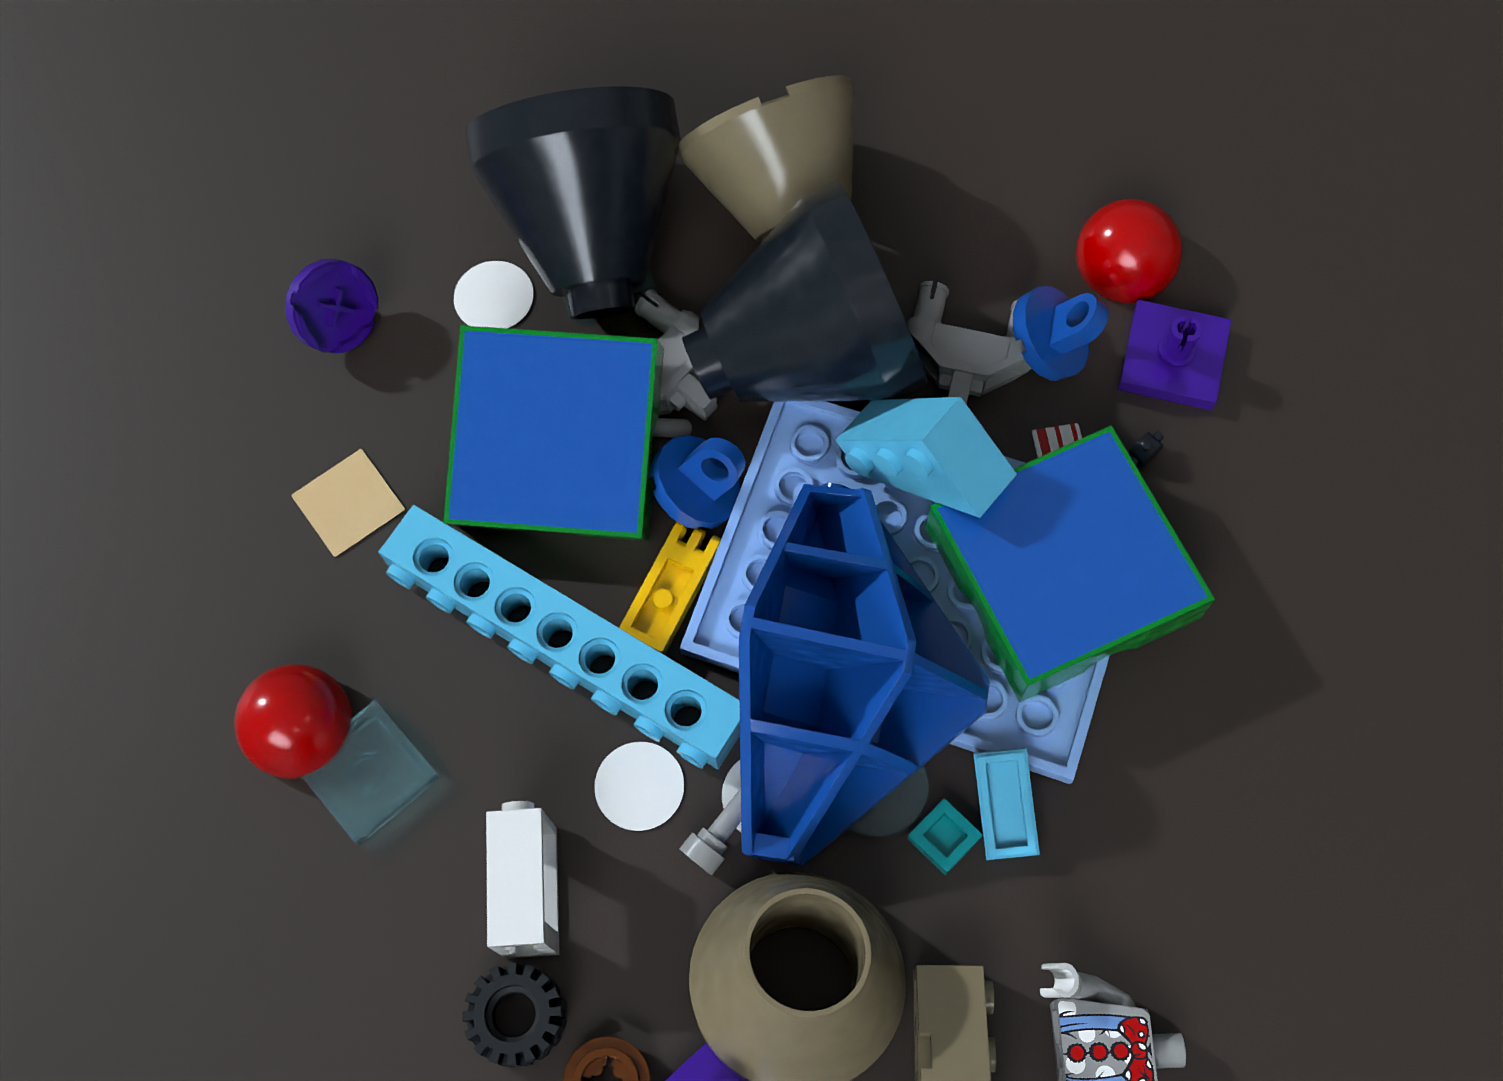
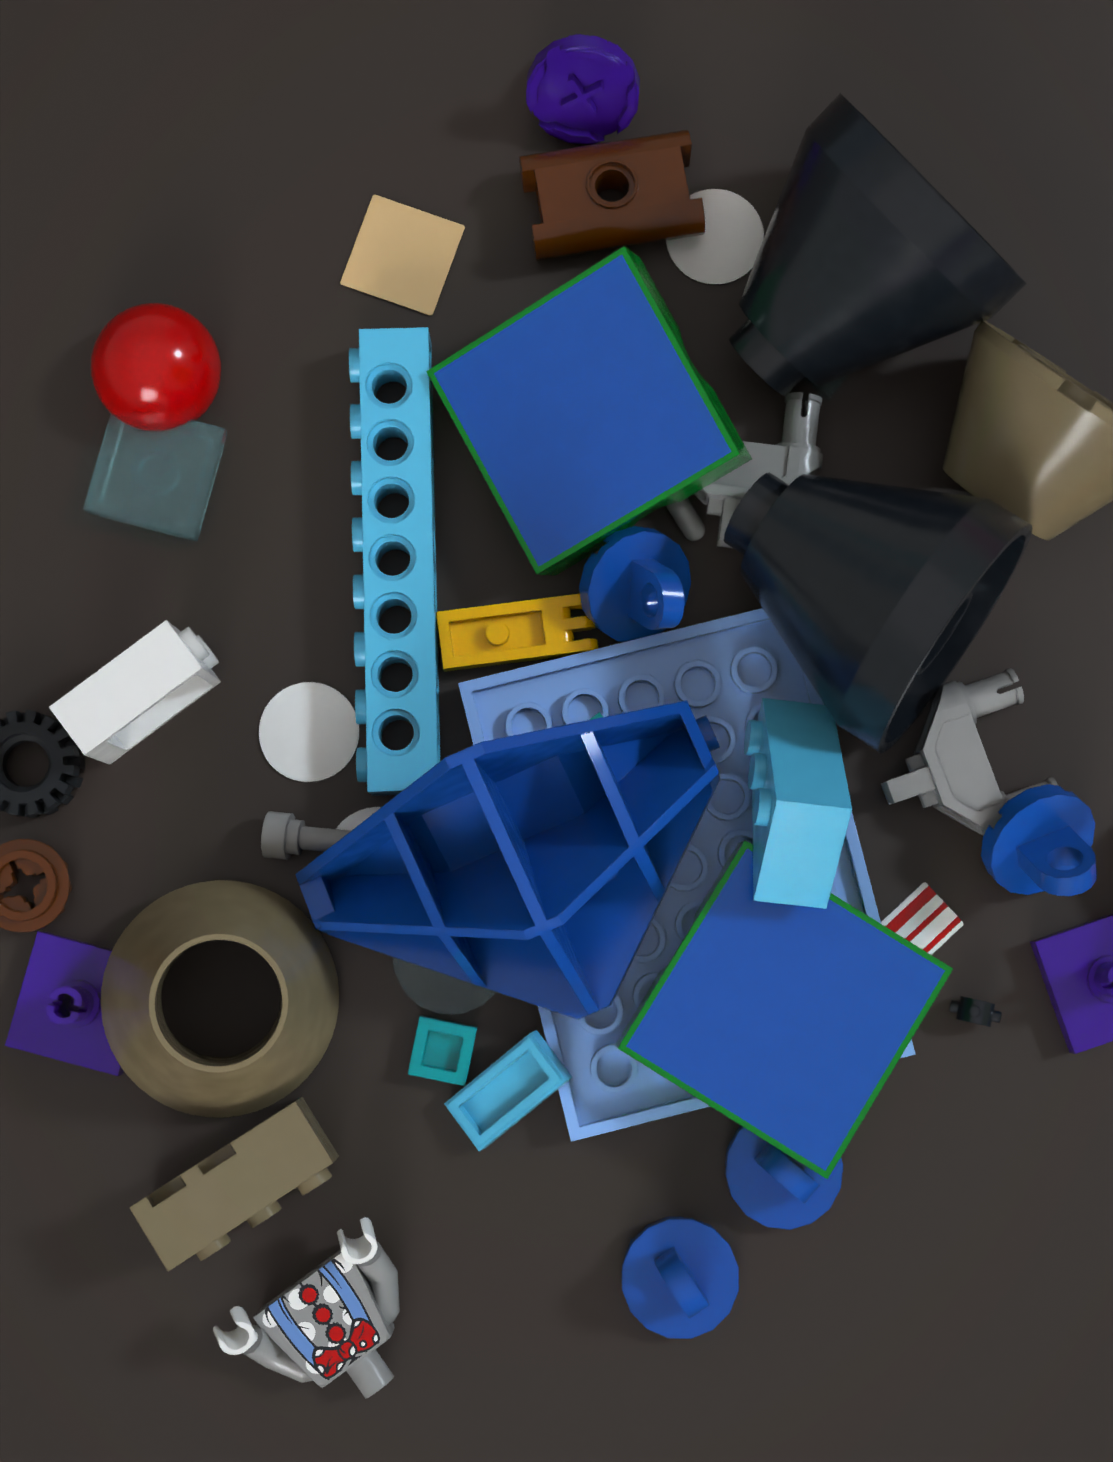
camera: 50 degrees right, 15 degrees up
(416, 366) = (642, 168): none -> reddish brown piece
(1189, 655) = (776, 1186): none -> blue tile
(1223, 769) = (679, 1277): none -> blue tile

